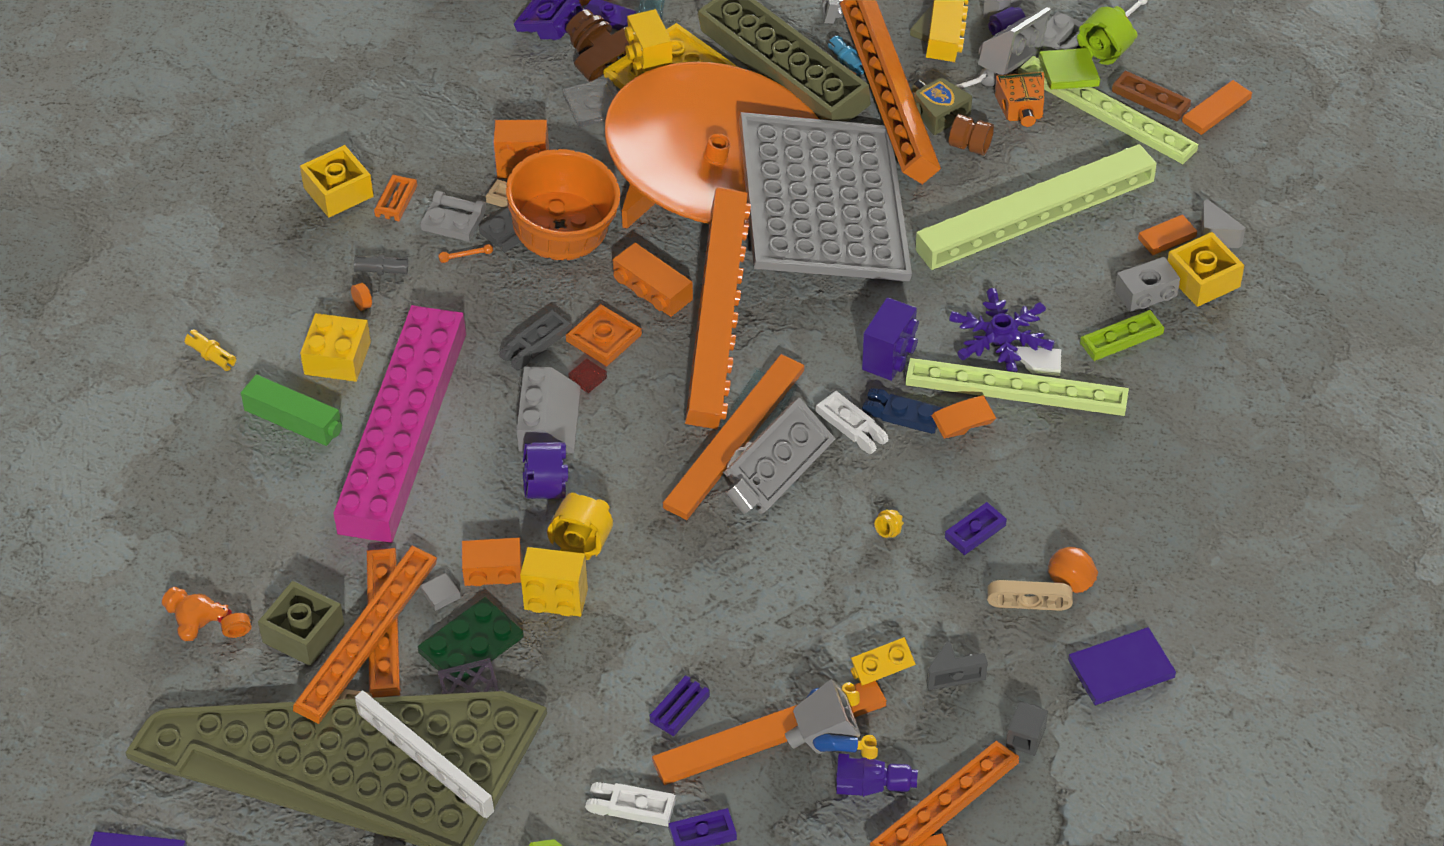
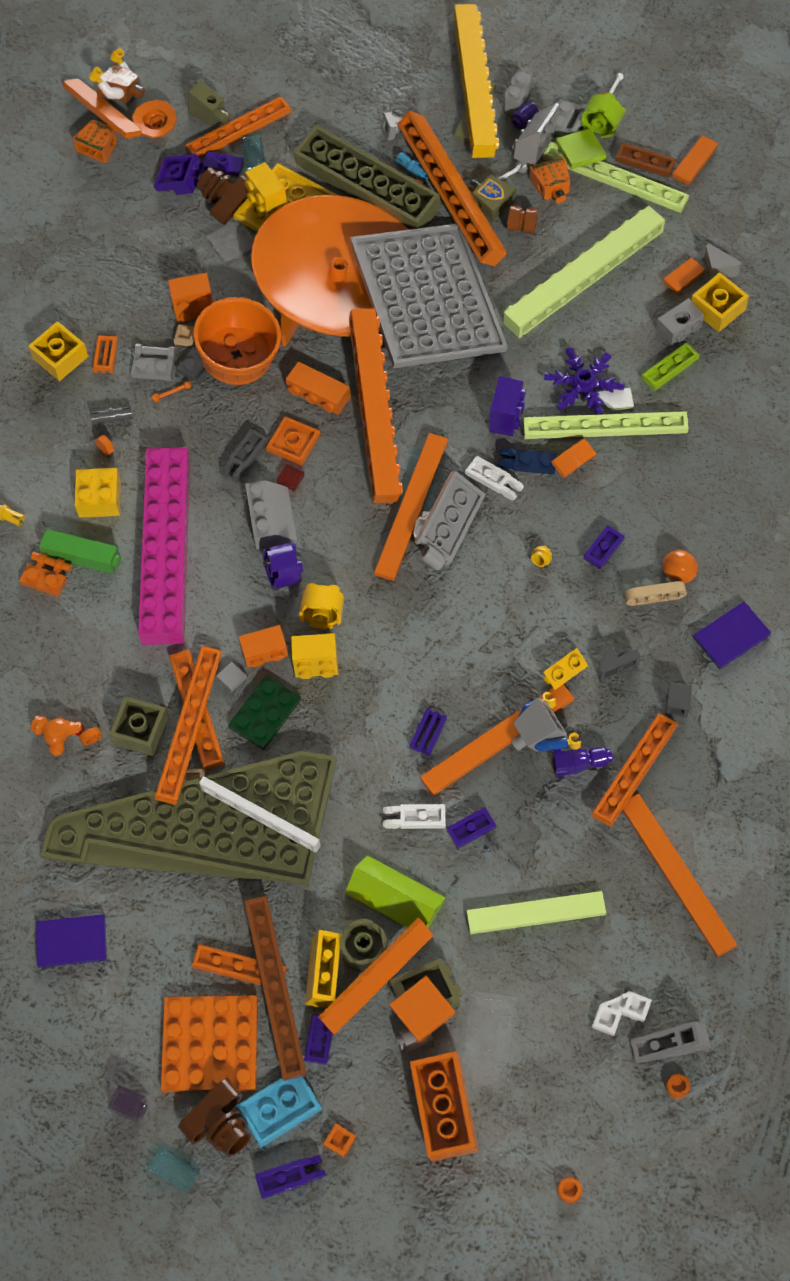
camera: 10 degrees left, 15 degrees up
(235, 435) = (42, 579): none -> orange plate
(465, 668) = (290, 743): clear purple window -> none

